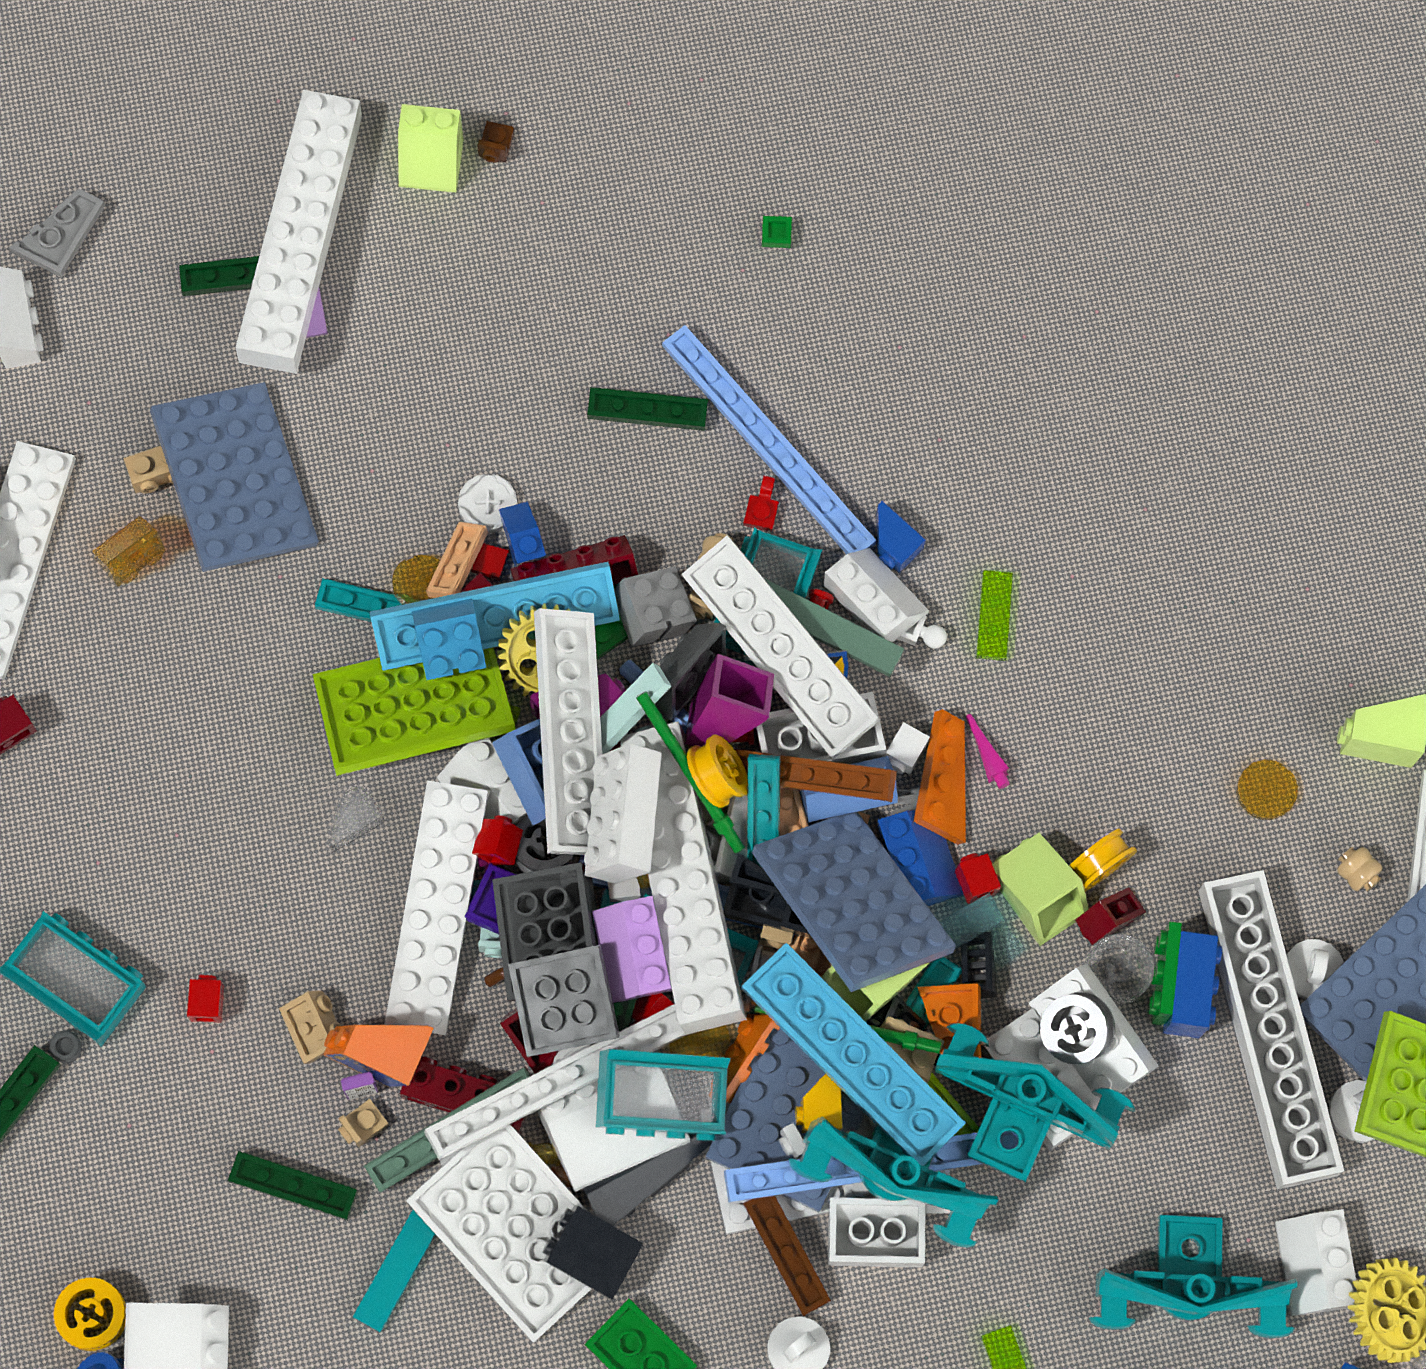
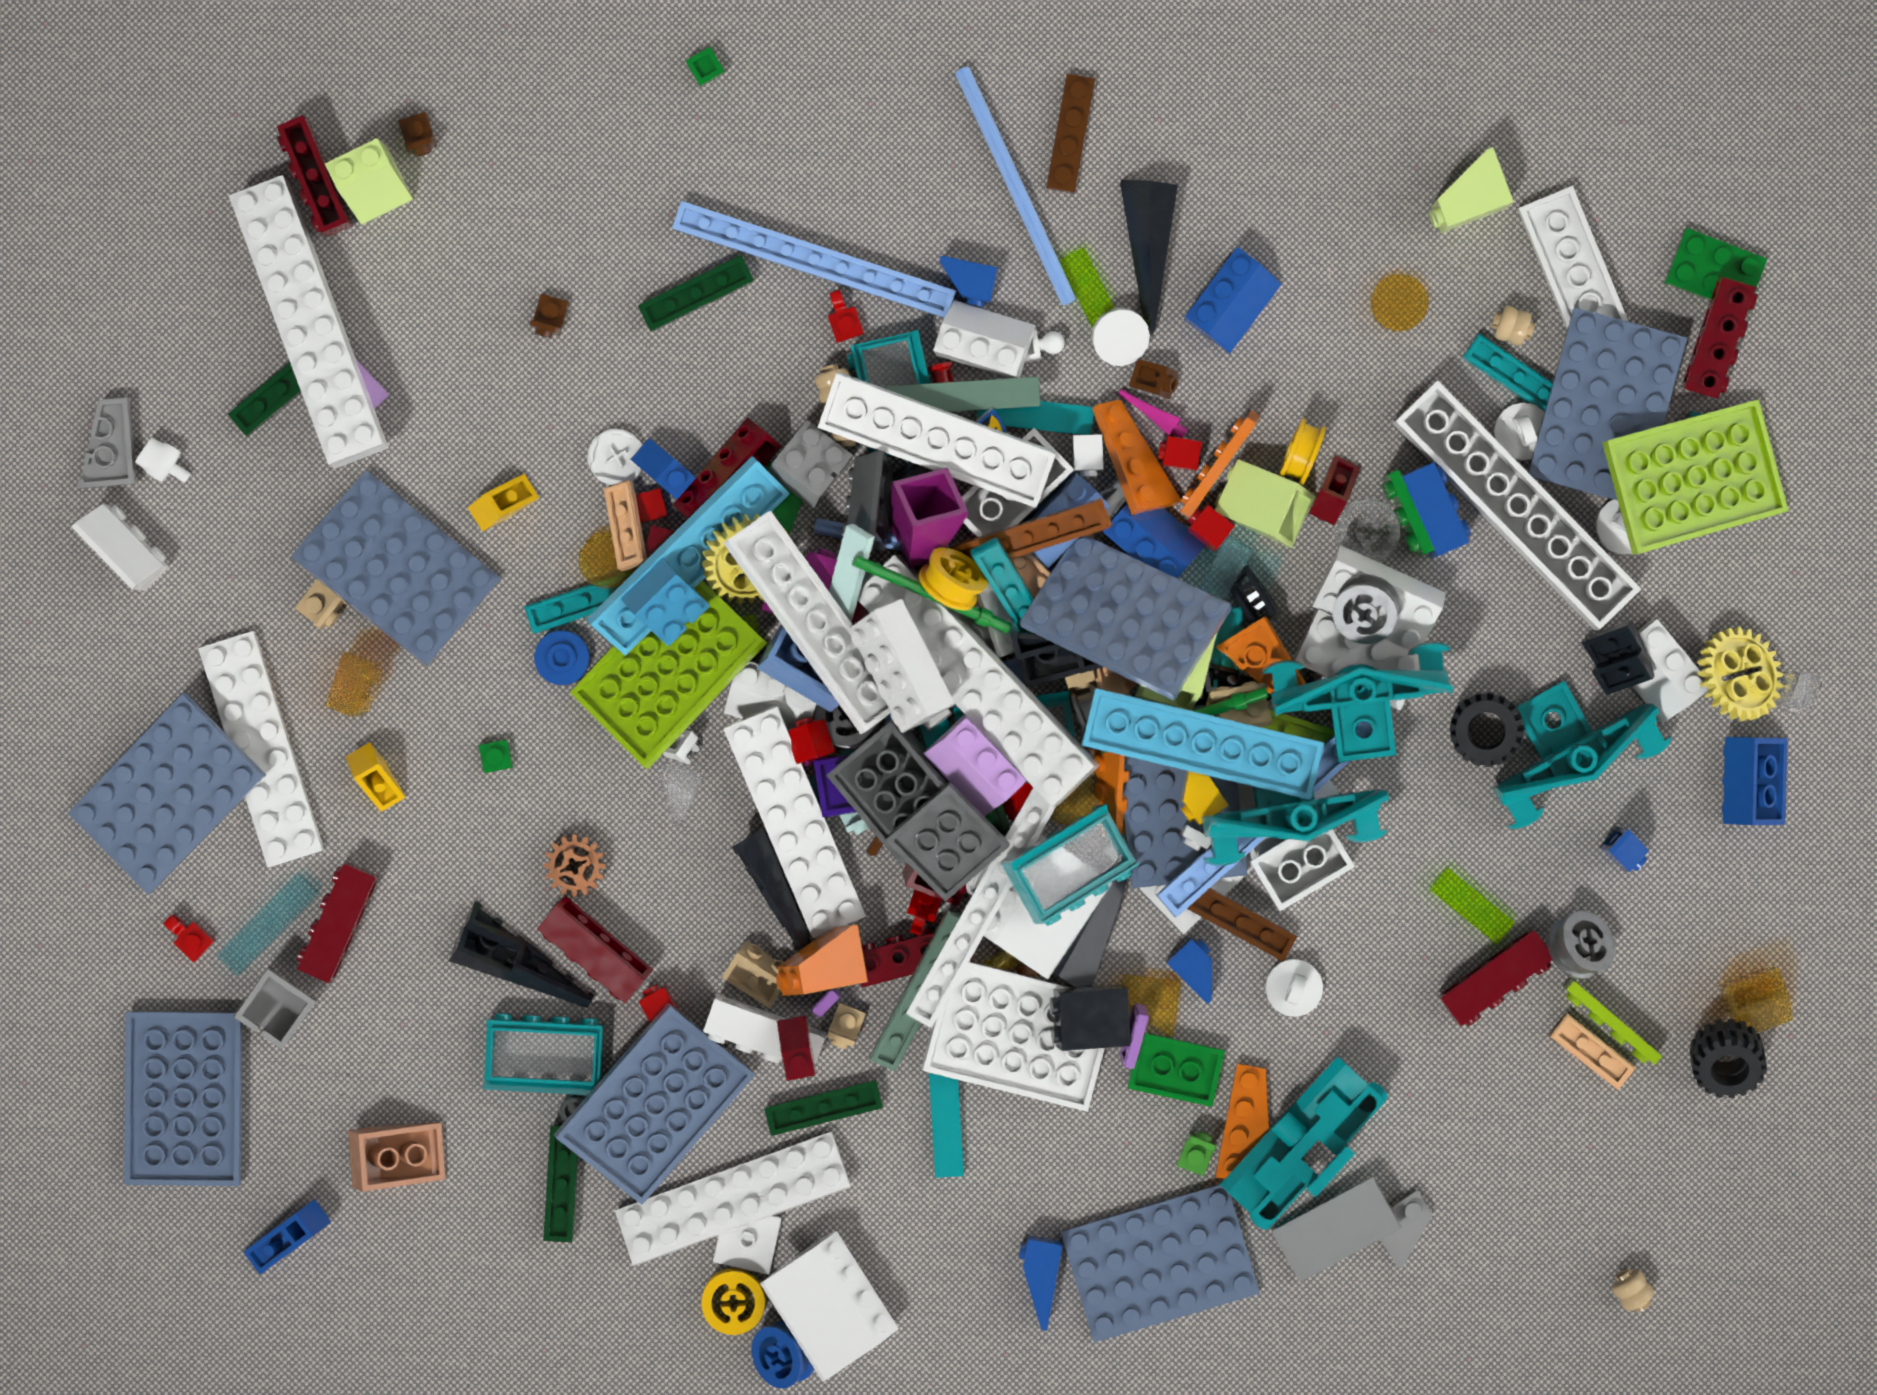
camera: 25 degrees left, 15 degrees up
(92, 642) = (374, 777): none -> yellow slope
(93, 860) = (495, 951): none -> black wedge
(95, 268) = (160, 459): none -> white piece
(141, 1082) = (654, 1104): none -> sand blue plate
(142, 1265) = (749, 1246): none -> white plate
(154, 1218) = (732, 1198): none -> white plate
(182, 910) = (594, 949): none -> dark red brick
(210, 691) = (495, 756): none -> green plate
(217, 814) = (579, 878): none -> nougat gear
(280, 1073) = (751, 1029): none -> white brick
(303, 1102) = (796, 1048): none -> dark red slope
(326, 642) = (562, 657): none -> blue piece
(363, 478) = (503, 502): none -> yellow slope
(377, 778) = (682, 746): none -> white tile
(380, 134) = (309, 167): none -> dark red brick
(383, 932) = (768, 875): none -> black wedge
(502, 1058) = (923, 908): none -> red plate
(508, 352) = (549, 316): none -> reddish brown bracket
(622, 1297) = (1137, 1023): none -> medium lavender tile
(660, 1278) = (1158, 996): none -> clear yellow wing
(717, 1269) = (1194, 966): none -> blue slope
(890, 696) = (1049, 418): none -> teal tile
(983, 488) = (1015, 186): none -> light blue axle
(990, 799) = (1180, 453): none -> red brick
(998, 666) = (1120, 336): none -> white tile
(1006, 721) = (1154, 379): none -> reddish brown bracket
(1021, 827) = (1224, 454): none -> orange wing
(1059, 473) = (1070, 133): none -> reddish brown plate
(1087, 580) = (1149, 222): none -> black wedge
(1117, 695) = (1232, 300): none -> blue slope
(1123, 1187) = (1481, 754): none -> black tyre
(1286, 1225) = (1619, 657): none -> black slope
(1331, 908) = (1508, 371): none -> teal tile

